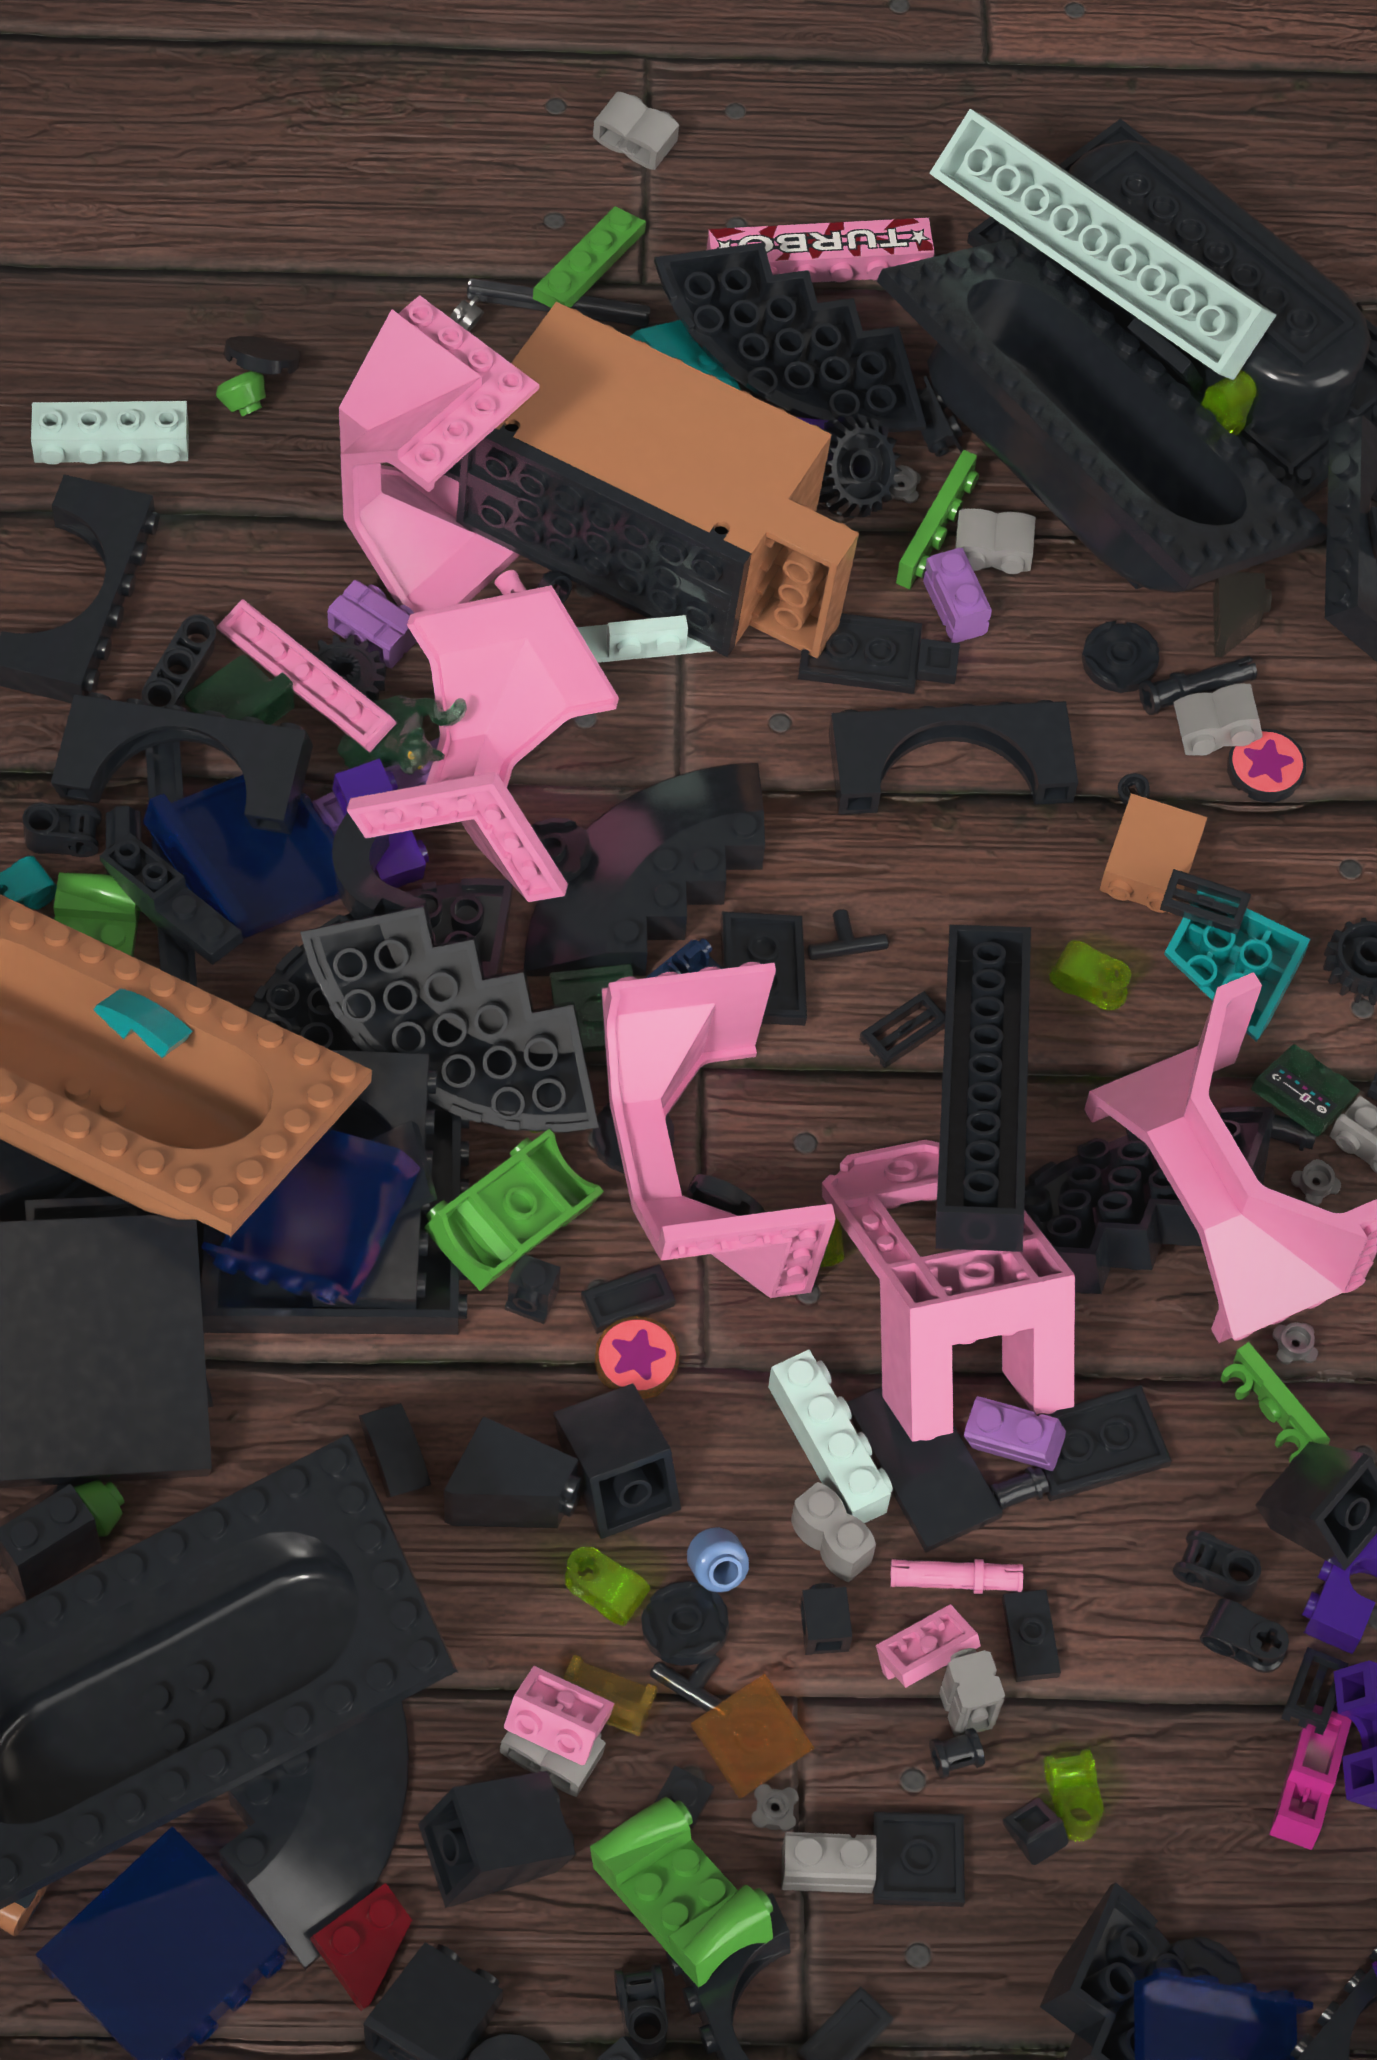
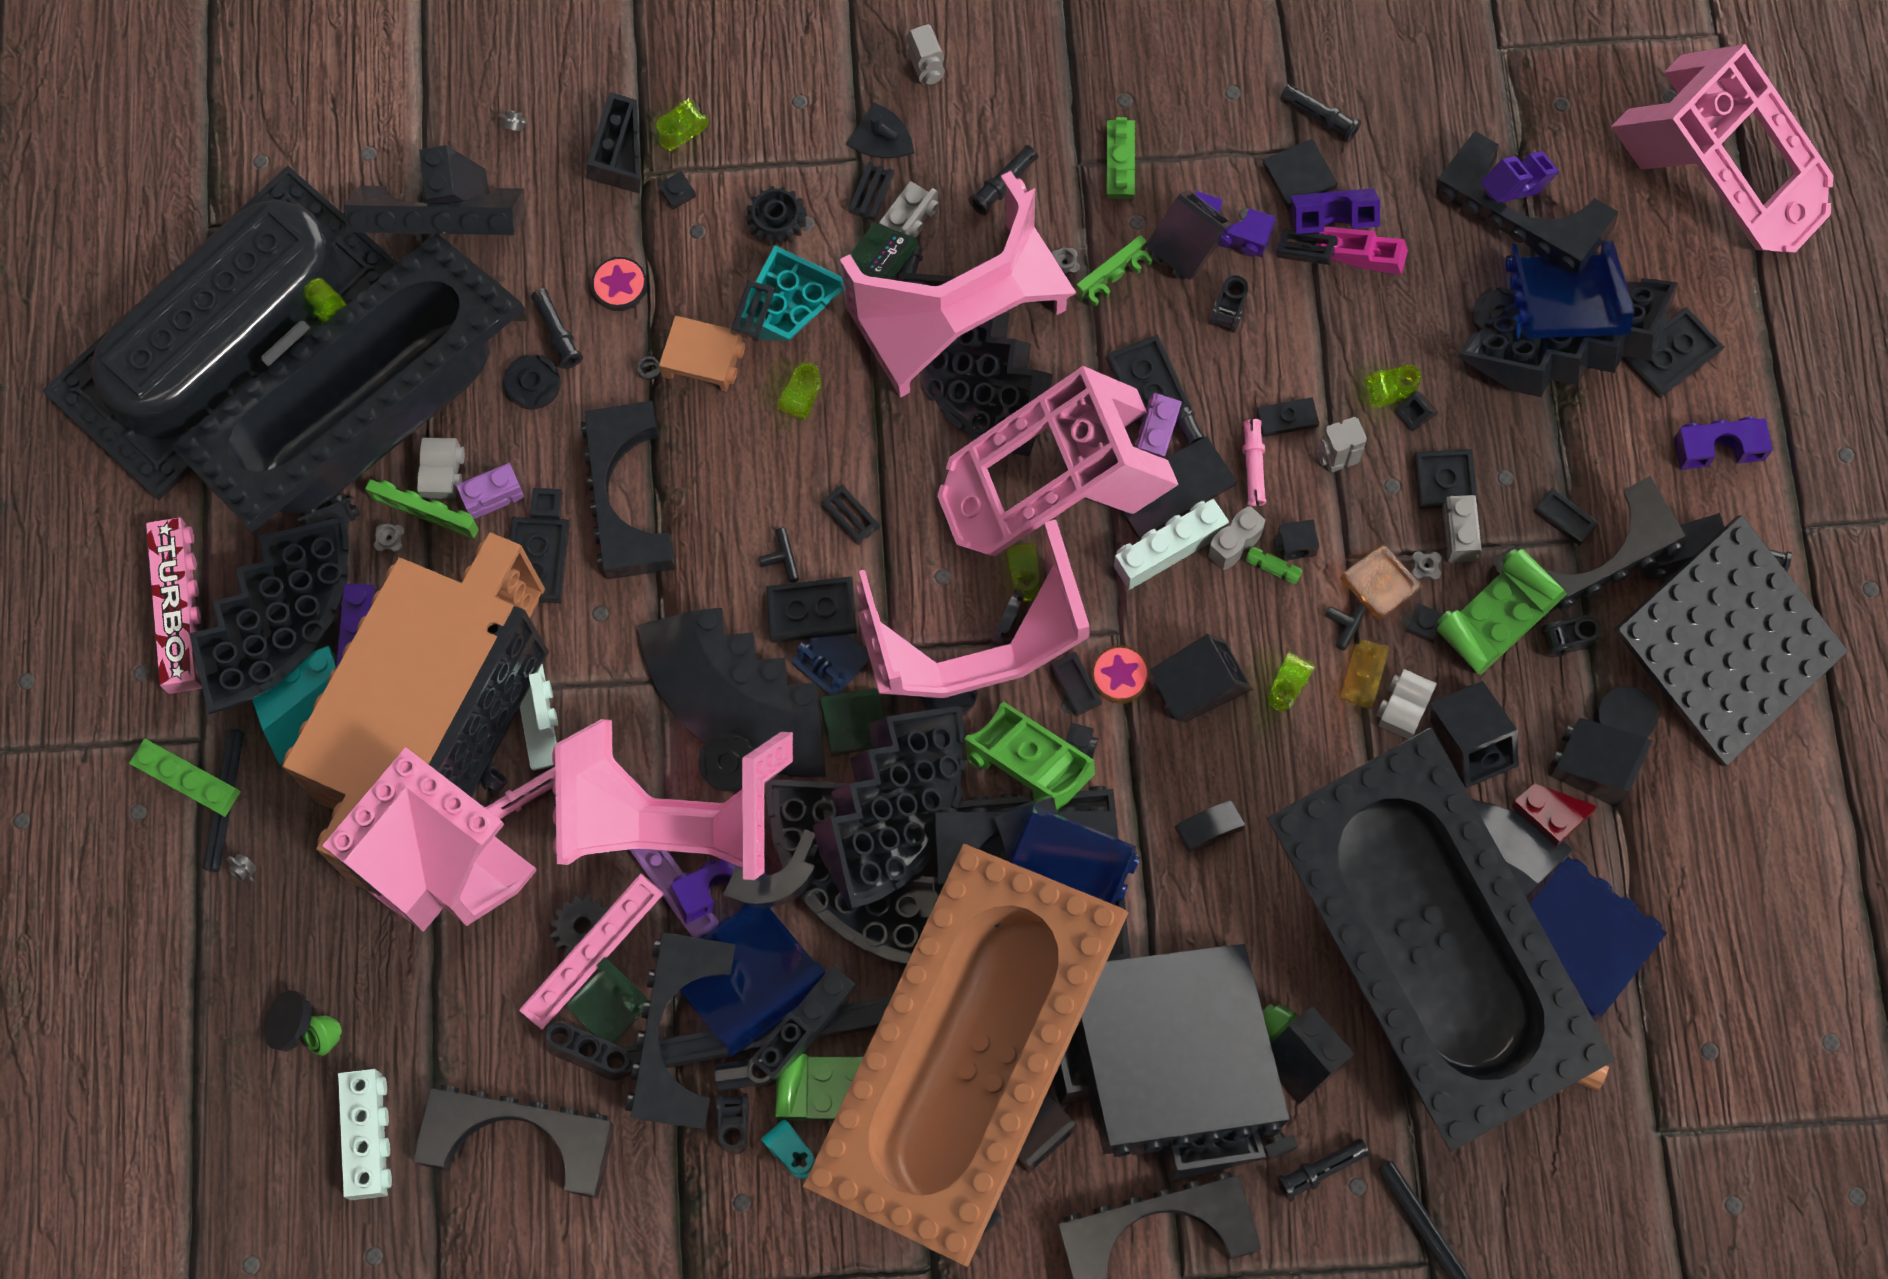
camera: 85 degrees left, 10 degrees up
(155, 1025) = (935, 1013): teal slope -> none
(373, 618) = (534, 909): medium lavender brick -> none
(405, 741) = (625, 871): clear green animal -> none
(511, 1482) = (1231, 744): black slope -> none
(557, 1715) = (1396, 694): bright pink bracket -> none
(636, 130) = (52, 752): light grey brick -> none
(685, 1623) = (1309, 628): black tile -> none
(717, 1559) = (1266, 608): medium blue head -> none
(790, 1587) = (1274, 565): none -> bright green axle
(865, 487) = (373, 556): black gear -> none
(926, 1646) = (1312, 473): bright pink bracket -> none
(956, 1753) = (1377, 457): black bush -> none
(984, 1090) = (921, 441): black brick -> none
(1102, 244) = (201, 380): light aqua brick -> none
(1218, 719) = (590, 311): light grey brick -> none
(1241, 1634) = (1275, 289): black piece -> none
(1318, 1171) = (949, 243): flat silver plate -> none

